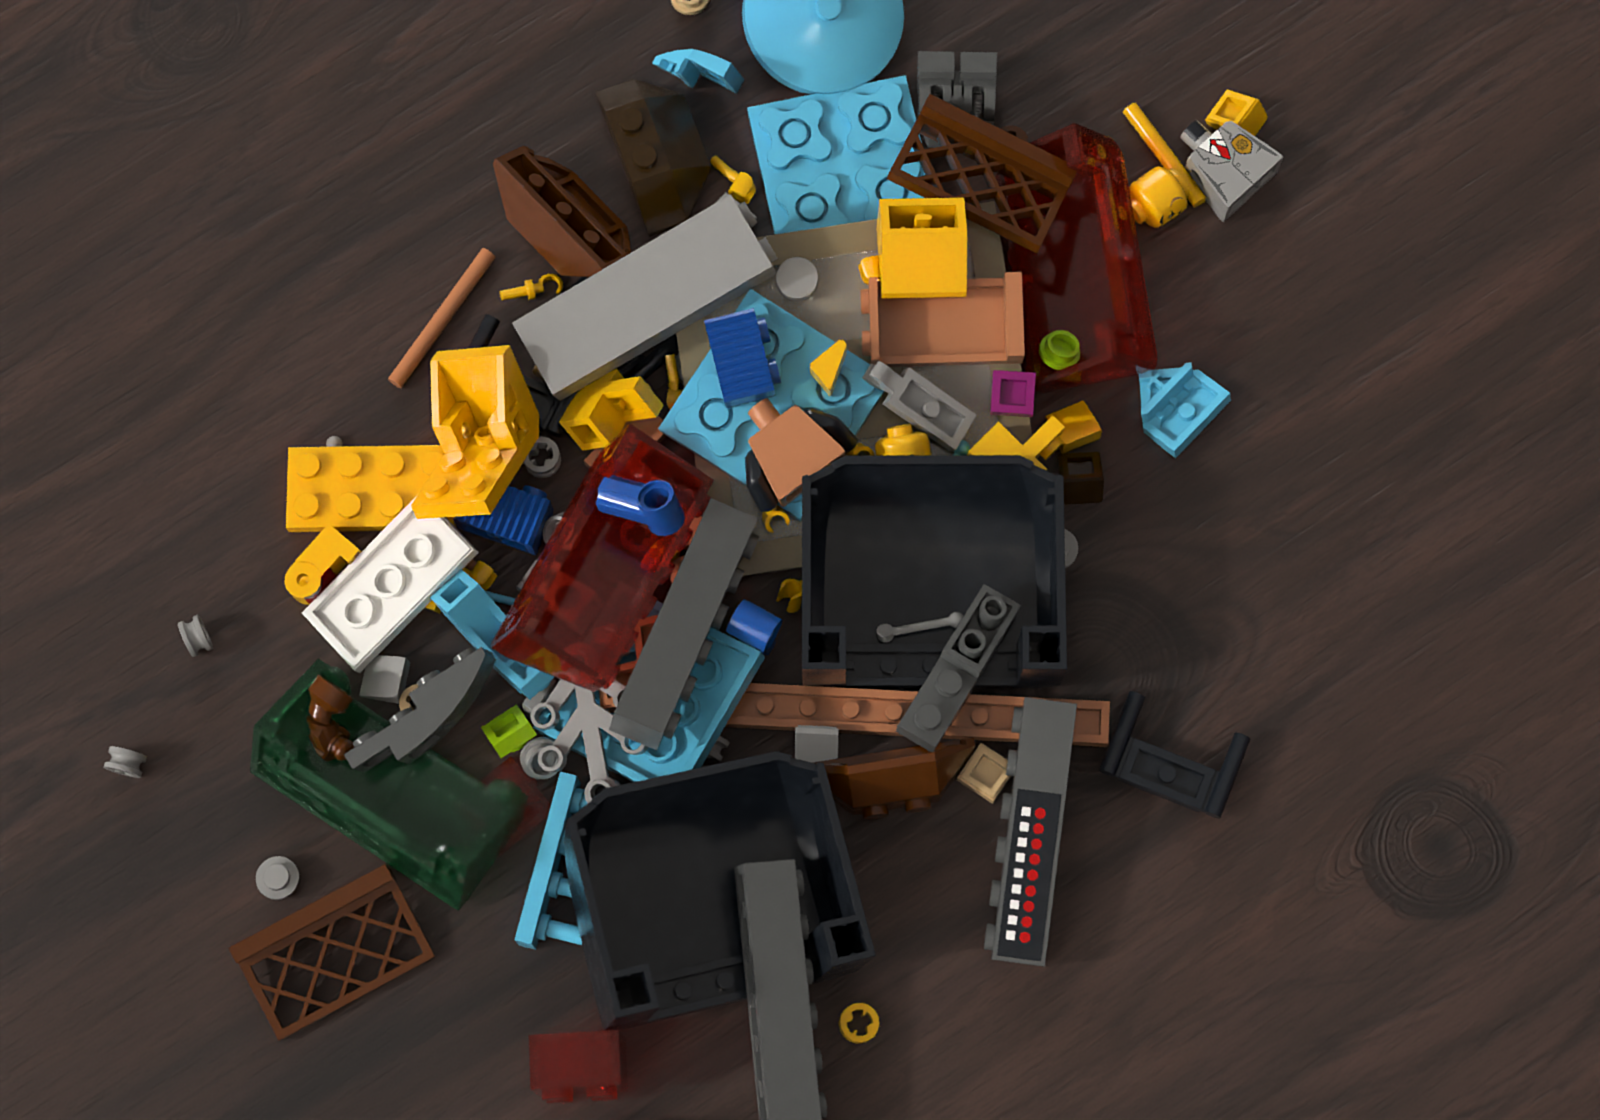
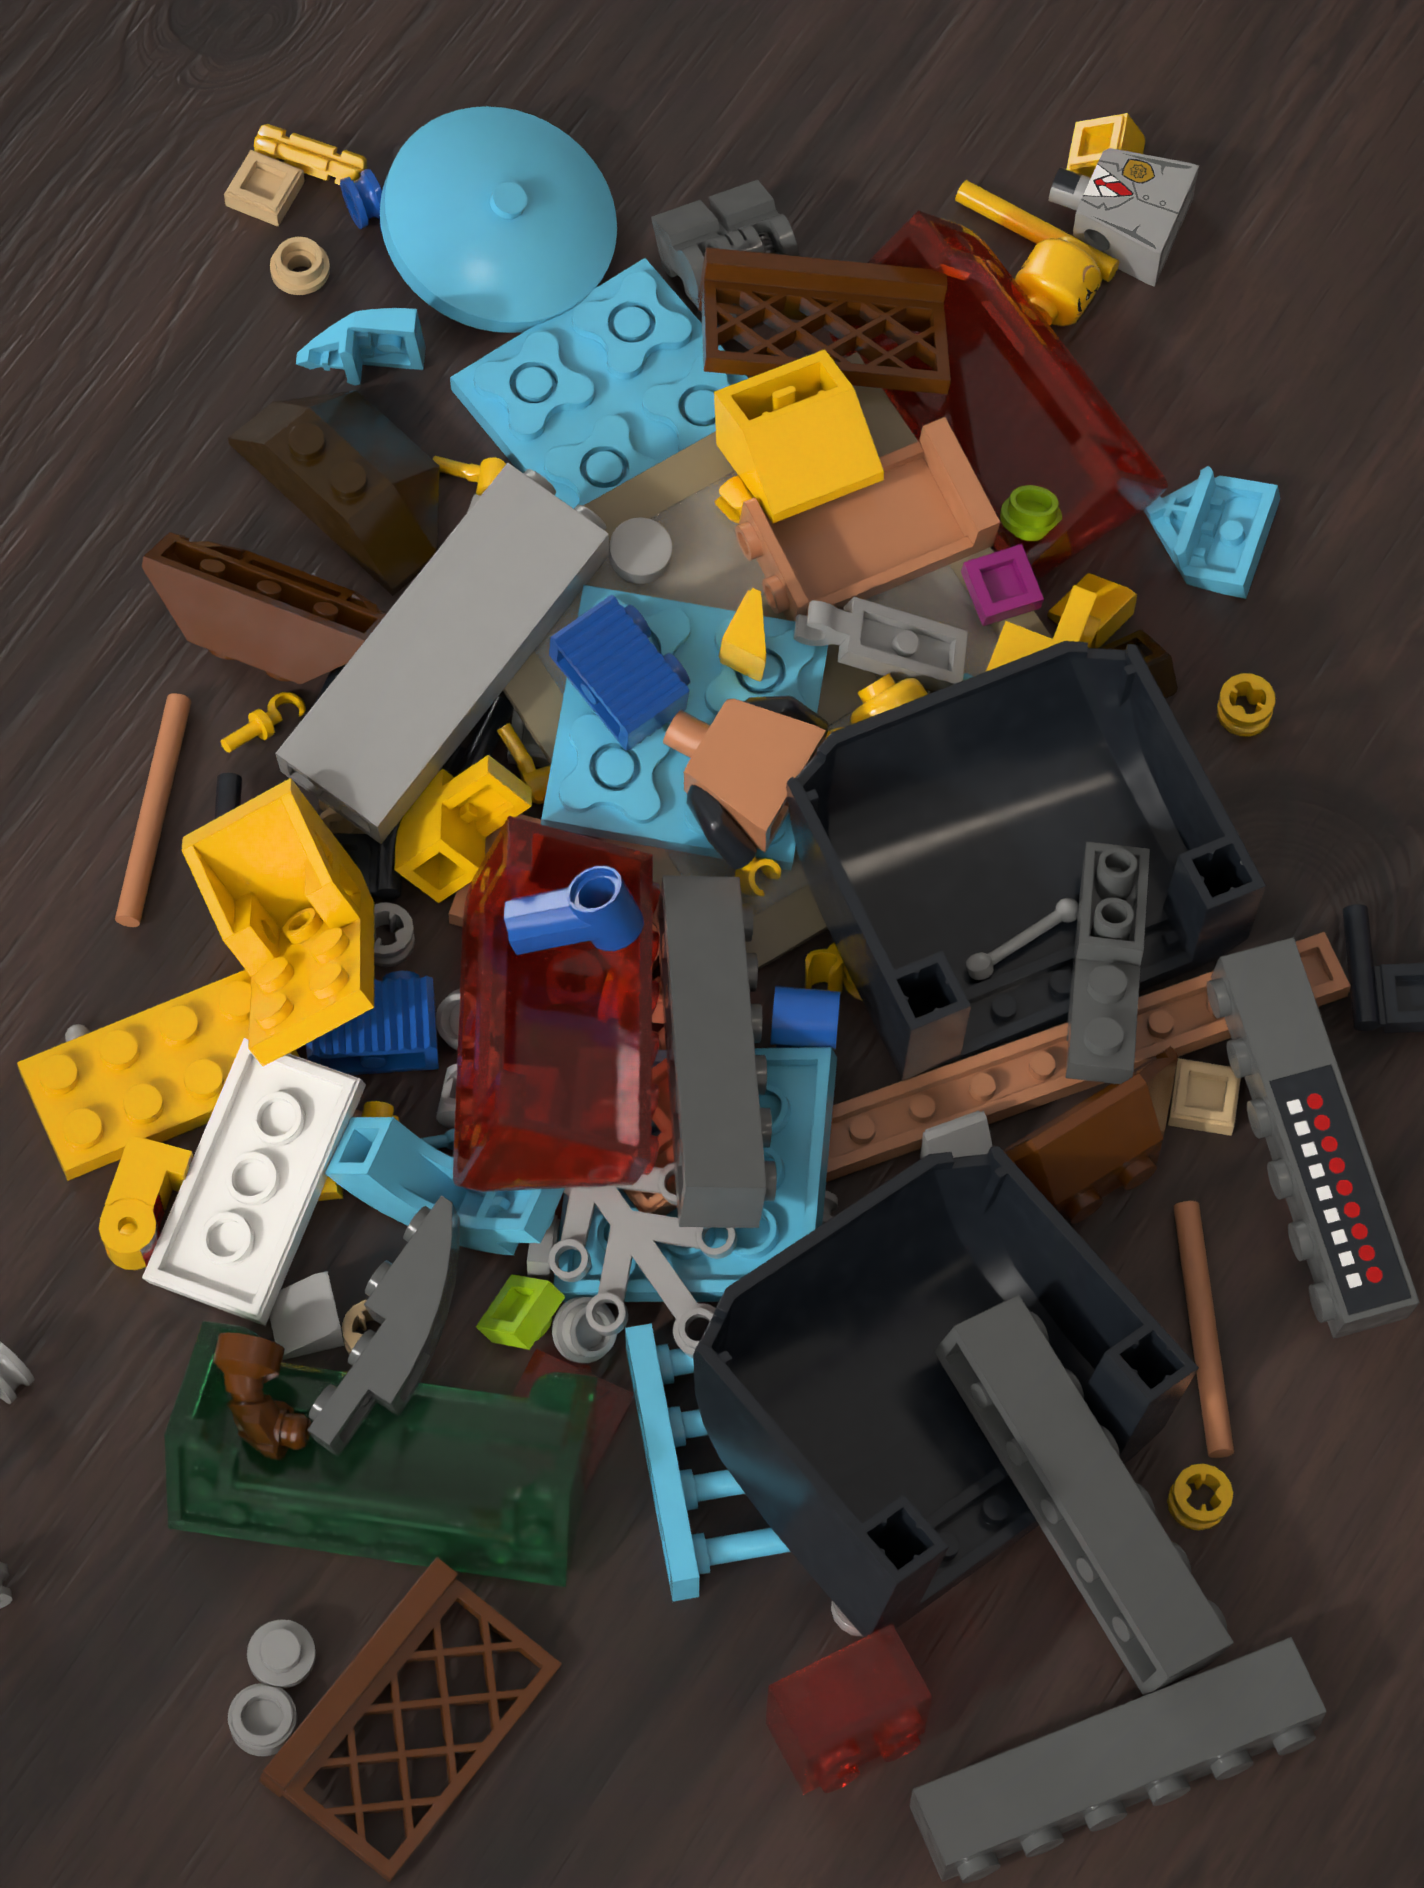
camera: 30 degrees left, 10 degrees down
(250, 911) = (262, 1719): none -> light grey tile
(912, 919) = (1203, 1329): none -> nougat bar
(1150, 524) = (1257, 692): none -> yellow bush

